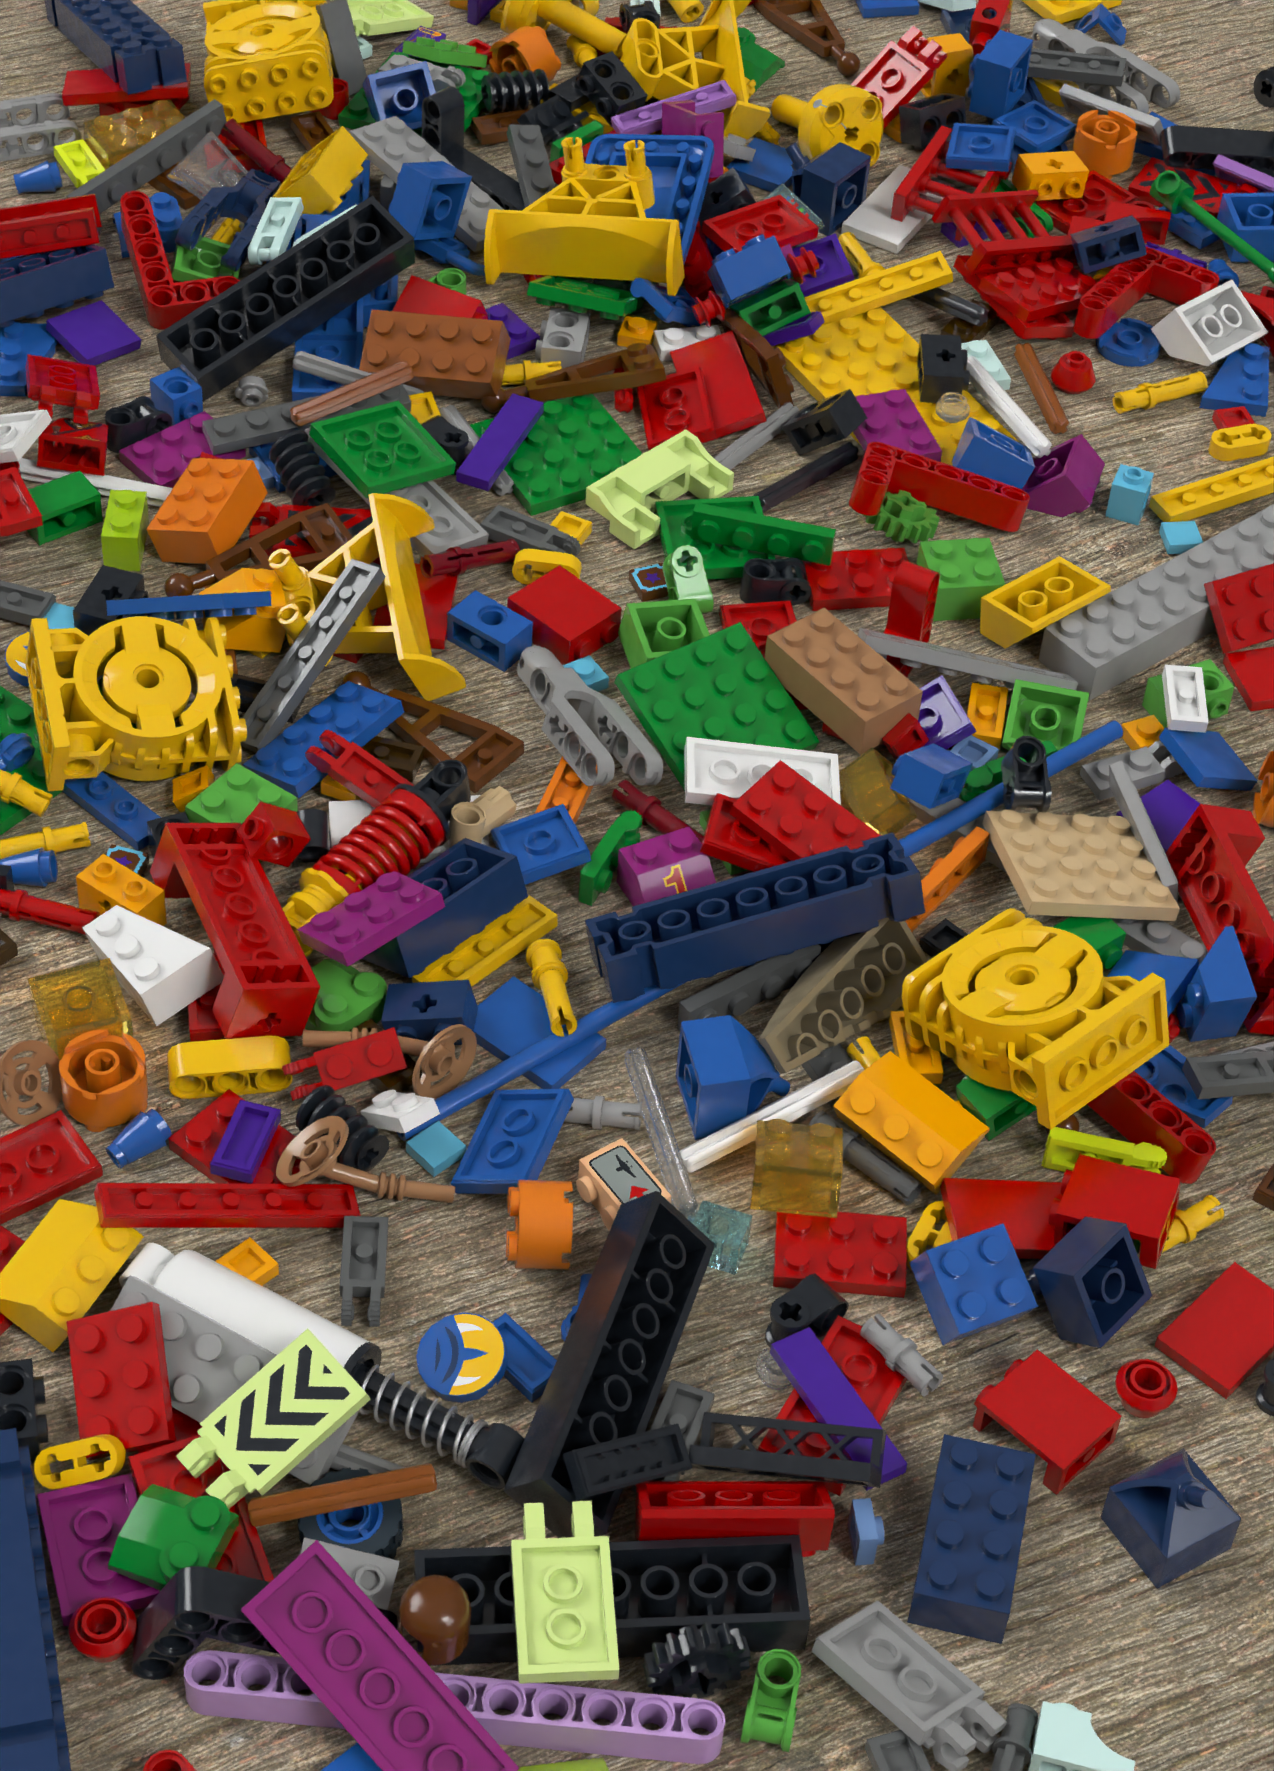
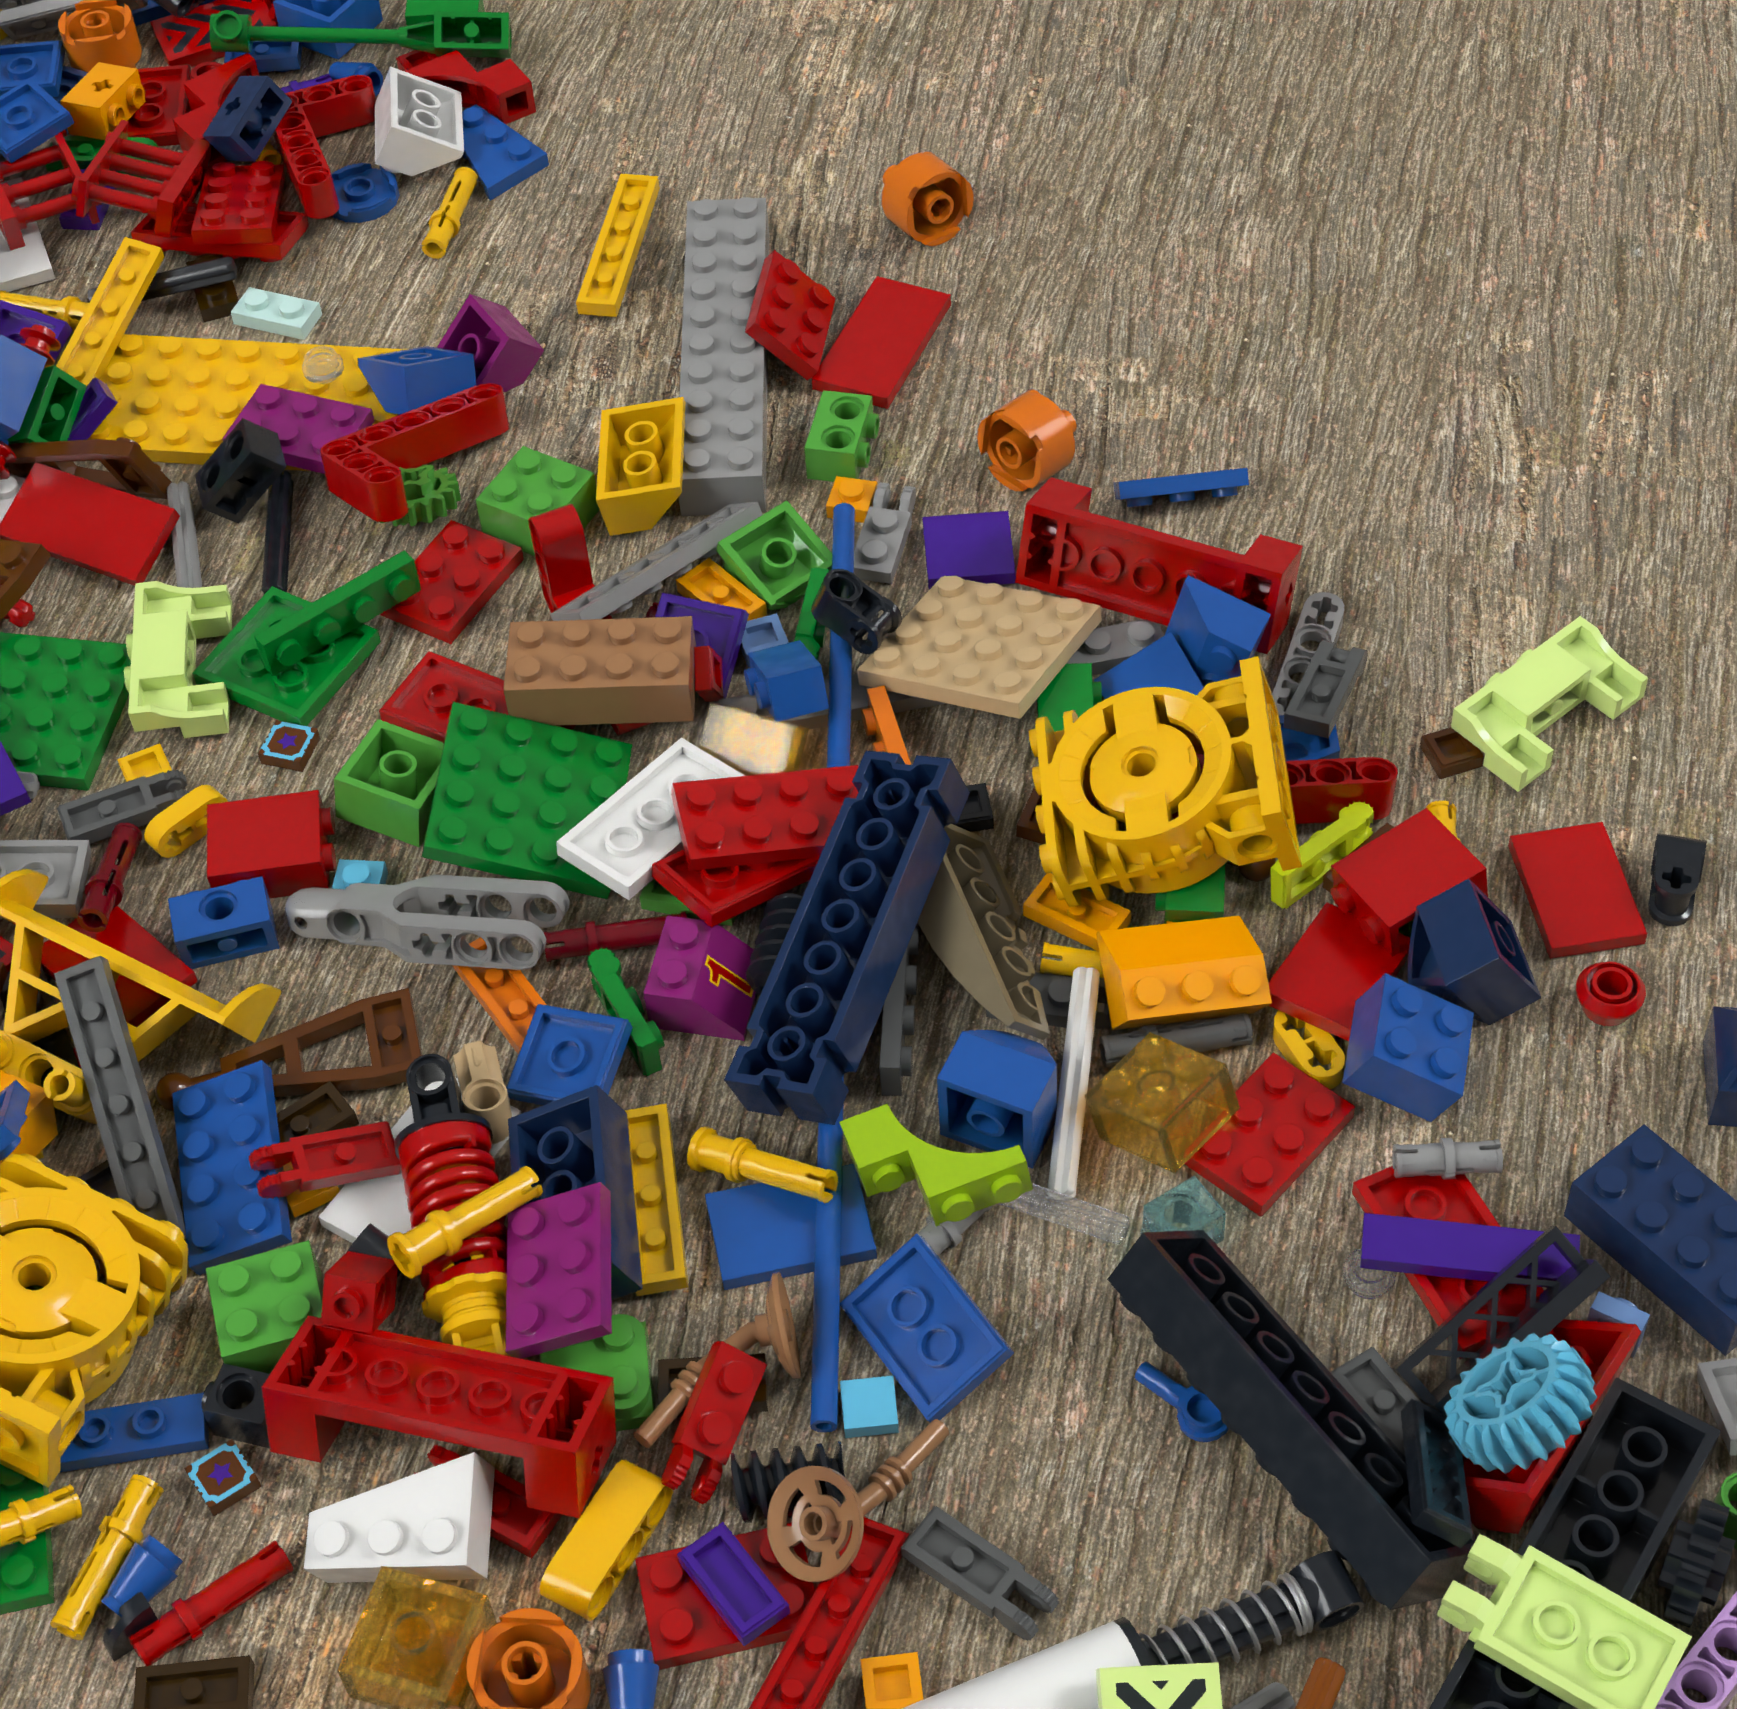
camera: 45 degrees left, 5 degrees up
(112, 884) = (275, 1503): light orange brick -> none
(190, 786) = (182, 1336): light orange plate -> none
(340, 841) = (445, 1230): none -> yellow pin
(399, 1111) = (813, 1408): white plate -> none
(428, 1008) = (706, 1274): dark blue brick -> none
(462, 1357) = (1164, 1548): tile -> none
(528, 1362) = (1191, 1496): blue tile -> none
(541, 1224) = (1065, 1367): orange brick -> none
(613, 1178) = (1063, 1269): brick -> none
(617, 1083) = (949, 1180): none -> lime arch
(676, 405) = (88, 579): red tile -> none
(688, 582) = (335, 715): piece -> none
(714, 1473) = (1520, 1403): none -> medium azure gear
(773, 580) = (395, 648): black piece -> none
(805, 1306) = (1326, 1211): black piece -> none
(941, 366) = (265, 339): black brick -> none
(1007, 409) = (359, 327): white axle -> none
(1041, 388) = (351, 289): dark orange axle -> none
(1050, 1416) = (1586, 1087): red panel -> none
(1073, 373) = (360, 255): red cone -> none
(1129, 494) = (558, 315): medium azure brick -> none
(1141, 826) = (946, 560): light grey tile -> none
(1179, 536) = (639, 316): medium azure tile -> none
(1185, 698) = (863, 436): white plate -> none
(1208, 760) = (928, 473): blue tile -> none
(1231, 417) = (538, 189): red tile -> none
(1239, 442) = (569, 192): yellow beam -> none

